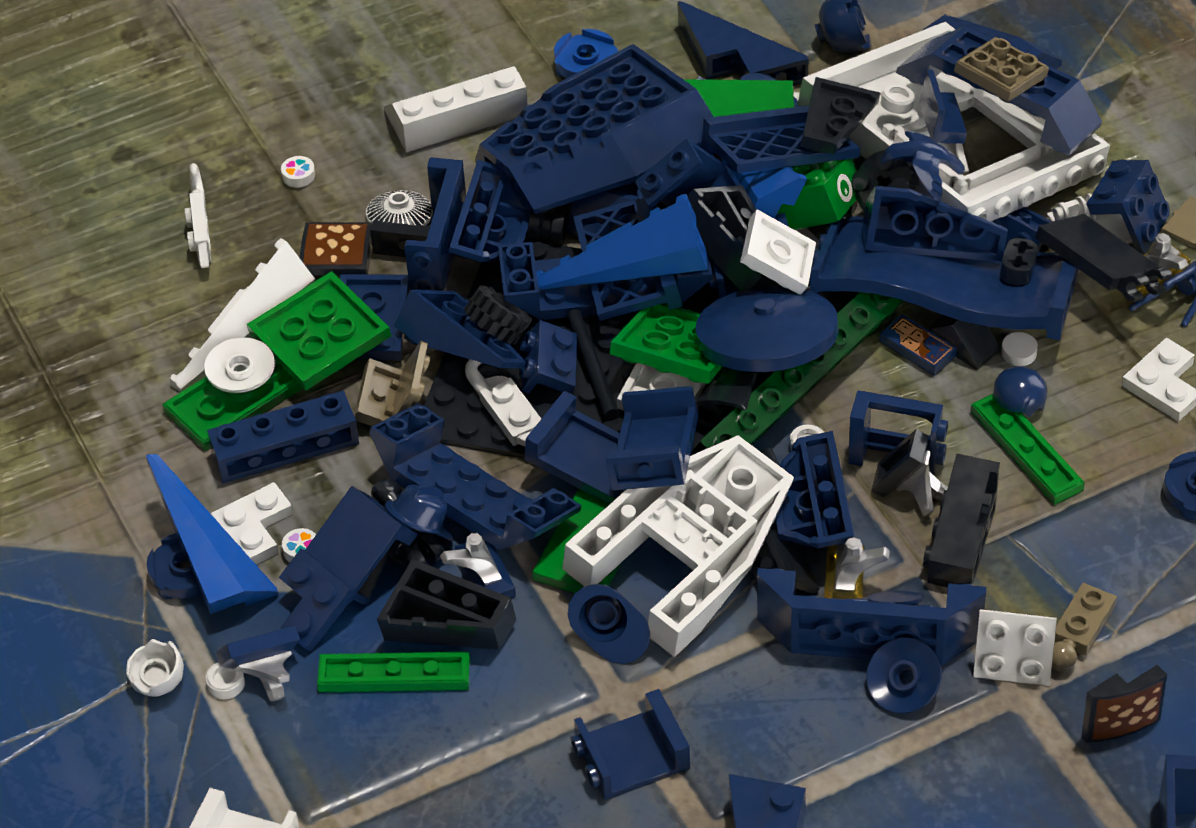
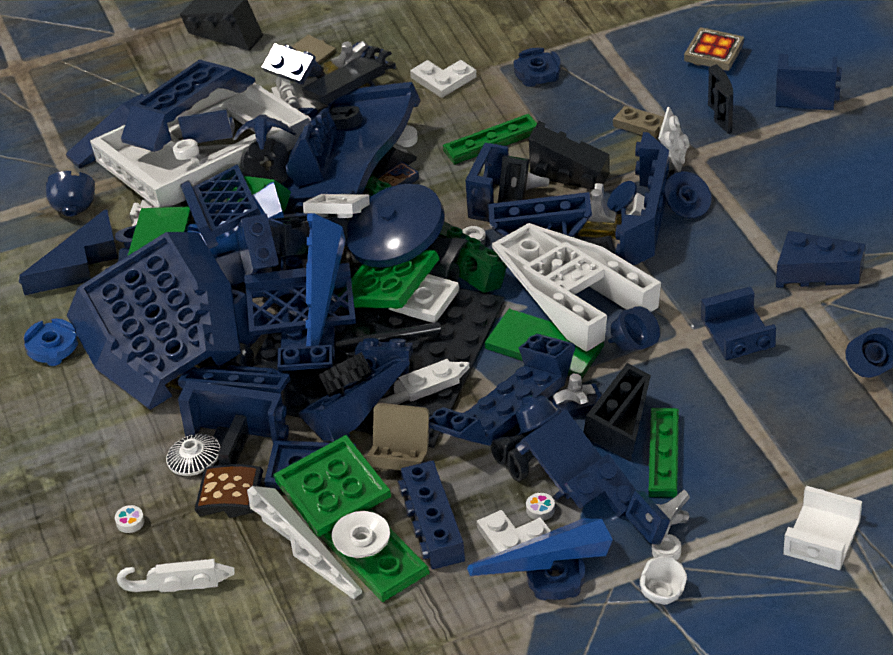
camera: 85 degrees left, 5 degrees down
(458, 109) = (82, 416): white slope -> none
(573, 448) = (489, 326): dark blue panel -> none
(654, 439) = (495, 283): dark blue panel -> none
(835, 114) = (207, 169): black wing -> none
(1001, 69) = (189, 83): dark tan tile -> none
(1020, 390) = (449, 131): dark blue hair -> none

